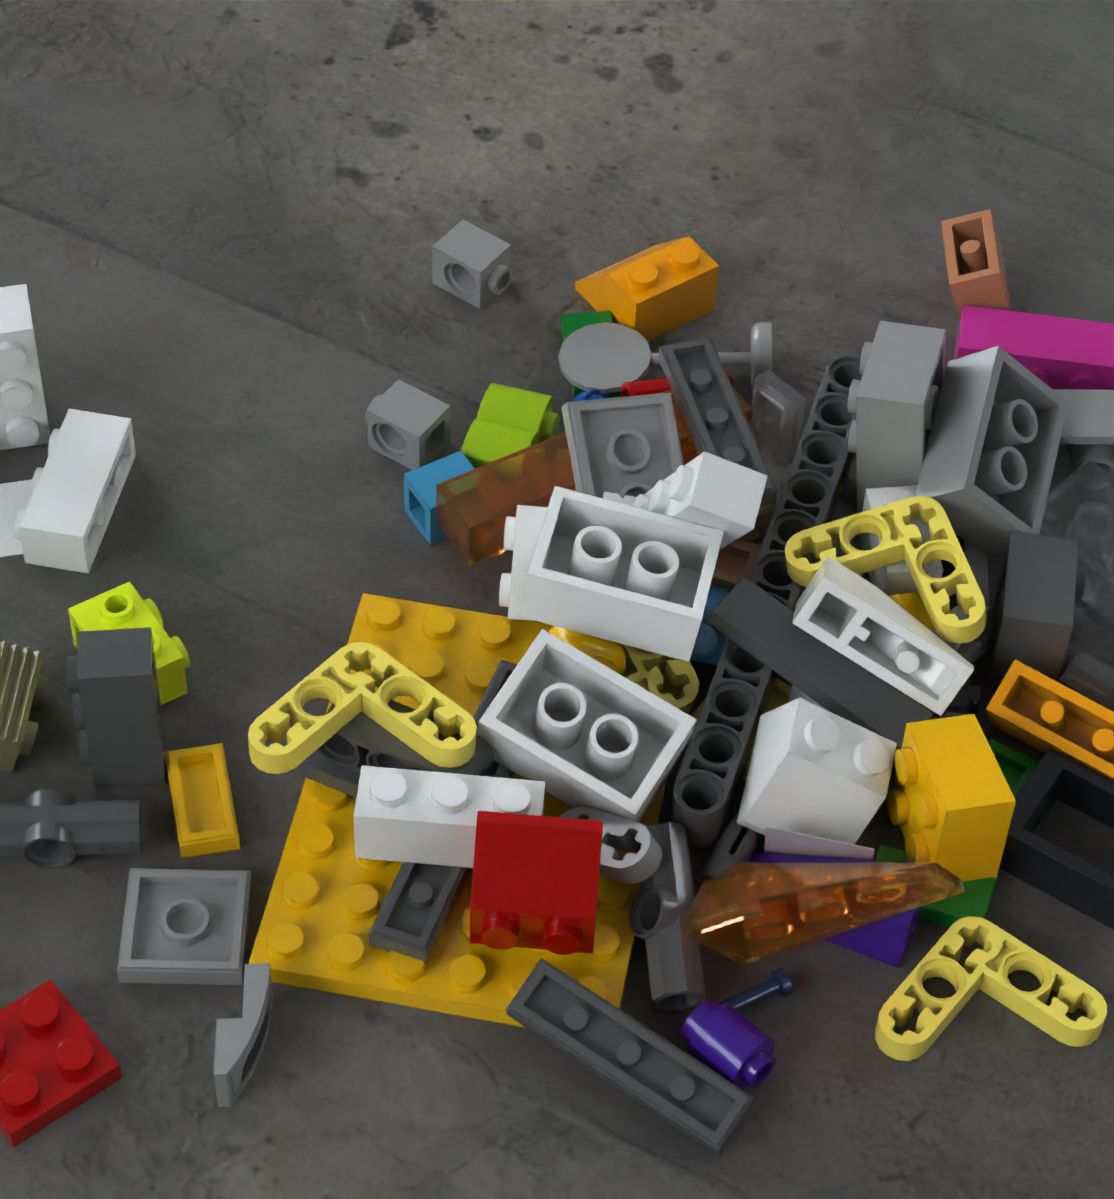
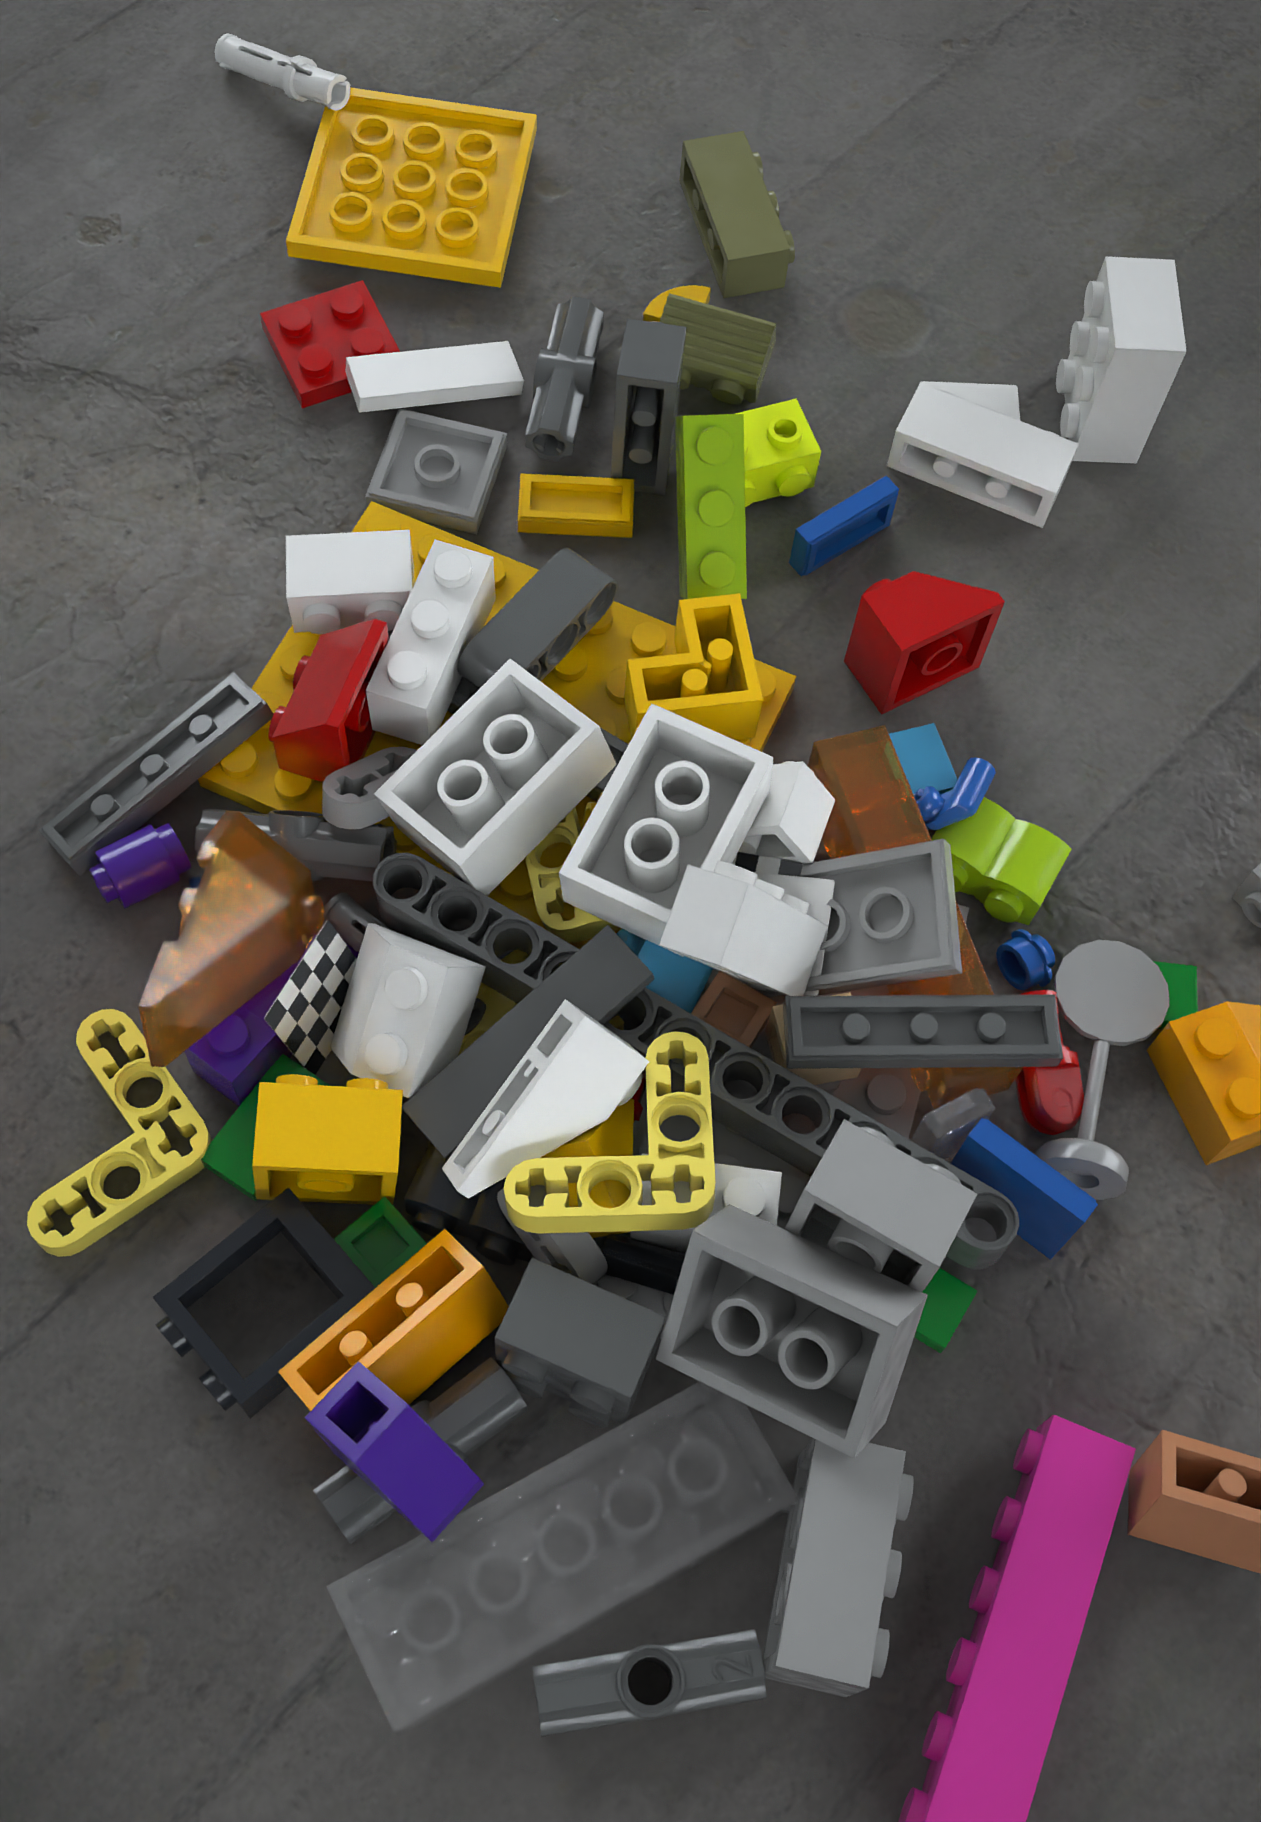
camera: 100 degrees right, 15 degrees up
(73, 944) = (433, 376): none -> white tile
(188, 578) = (843, 526): none -> blue tile
(227, 643) = (711, 505): none -> lime brick
(242, 1040) = (277, 473): light grey slope -> none
(324, 497) = (918, 636): none -> red slope
(357, 694) = (580, 577): light yellow beam -> none
(395, 906) = (347, 578): none -> white brick
(408, 425) = (1030, 762): light grey brick -> none
(426, 614) = (708, 677): none -> yellow brick
(481, 440) = (959, 802): none -> blue arm
(810, 358) = (1046, 1201): none -> blue tile

